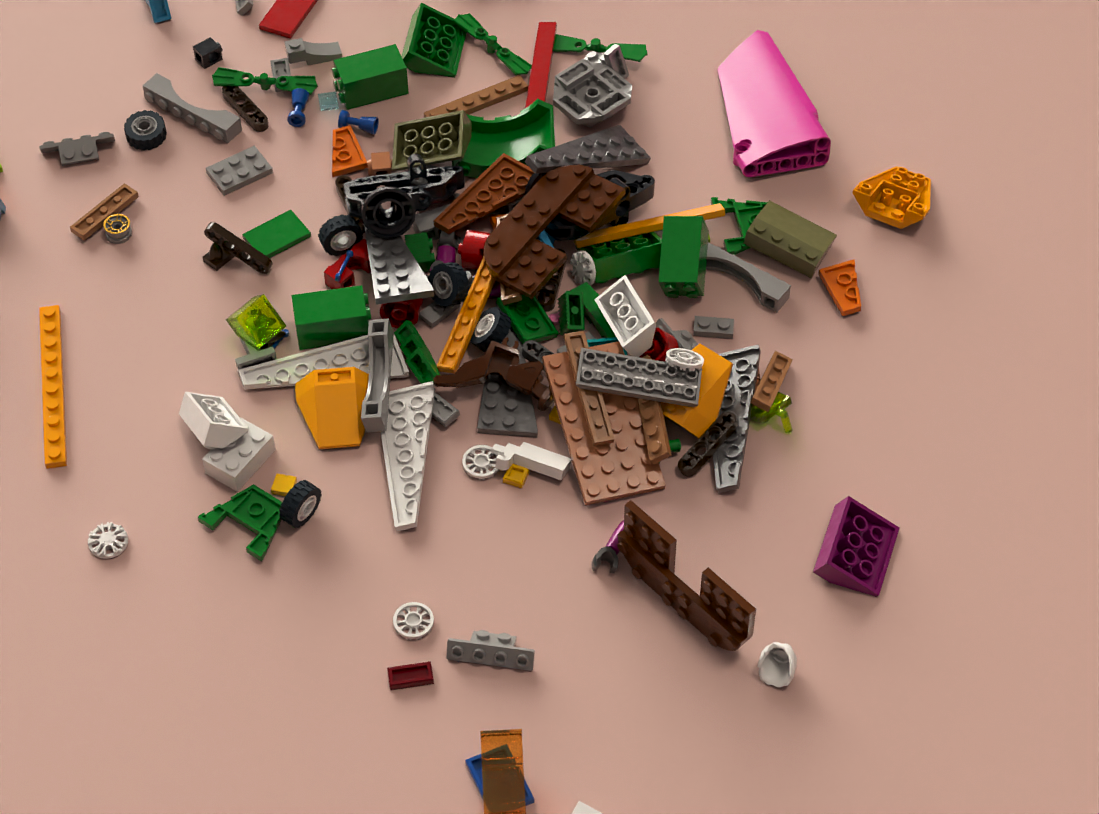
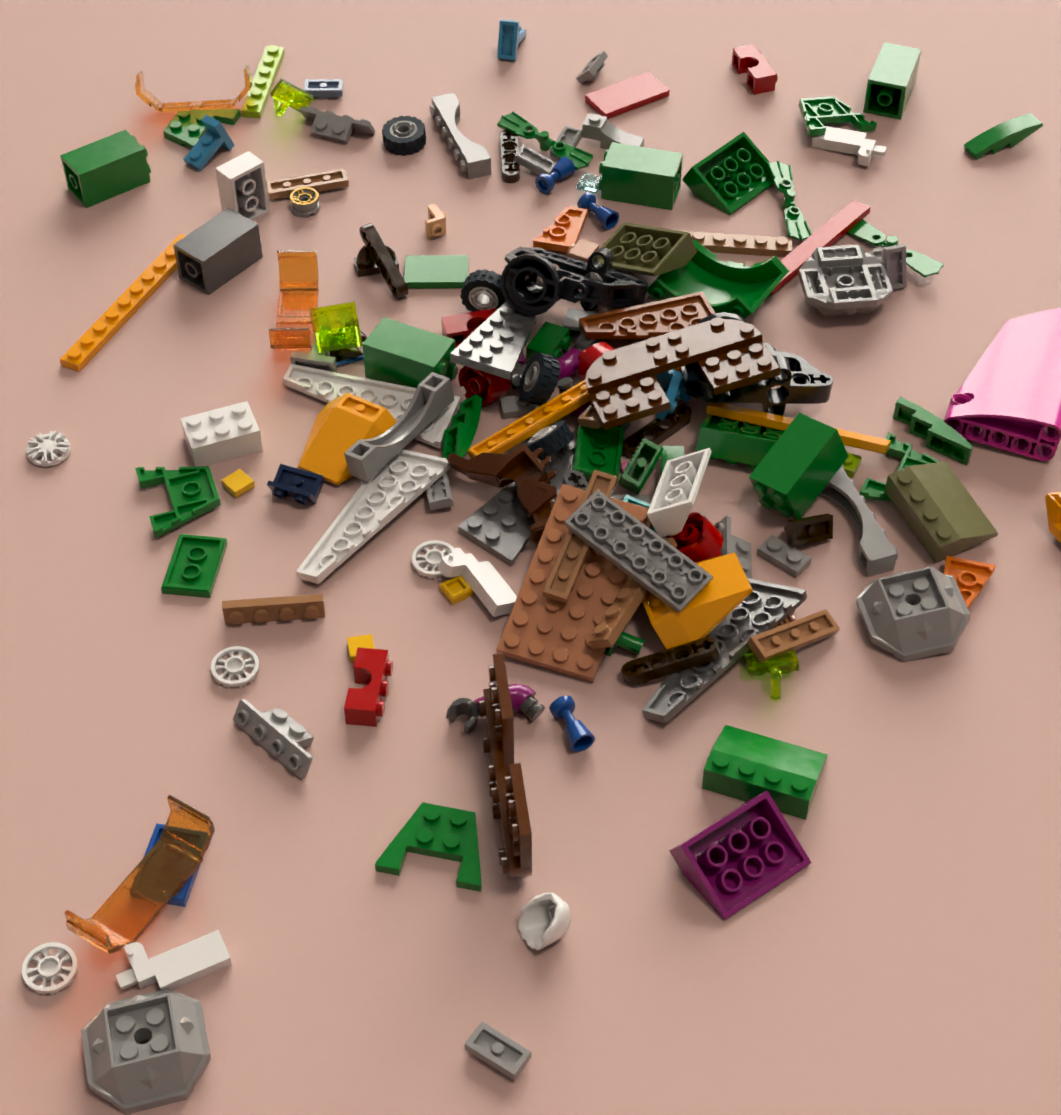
camera: 35 degrees right, 5 degrees down
(19, 141) = (290, 97): none -> clear neon green plate
(36, 118) = (324, 87): none -> sand blue plate
(69, 244) = (244, 186): none -> white brick
(94, 306) = (218, 251): none -> dark grey brick
(195, 320) = (297, 296): none -> clear orange windscreen
(207, 52) = (512, 99): black brick -> none
(211, 420) = (218, 389): white slope -> none
(239, 170) = (457, 203): light grey plate -> none
(240, 192) = (436, 222): none -> light nougat bracket
(272, 103) = (534, 161): none -> light grey plate
(300, 503) = (226, 502): black wheel -> none
(311, 565) = (194, 566): none -> green tile
(332, 461) = (297, 484): none -> dark blue bracket
(349, 254) = (448, 326): blue hinge -> none
(401, 565) = (273, 609): none -> medium nougat plate
(410, 675) = (185, 715): dark red tile -> none
(489, 555) = (361, 641): none -> yellow tile
(516, 565) = (365, 704): none -> red arch
(582, 269) = (692, 431): white wheel -> none
(598, 150) = (807, 334): flat silver wing -> none
(660, 649) = (440, 834): none -> green wing
(684, 359) = (700, 557): white wheel -> none
(687, 528) = (578, 735): none -> blue piece
(717, 298) = (809, 529): none -> dark brown tile
(736, 179) = (938, 434): none -> green slope
(817, 762) = (498, 1050): none -> light grey plate
(823, 482) = (750, 764): none -> green slope
(834, 336) = (914, 613): none -> light grey piece

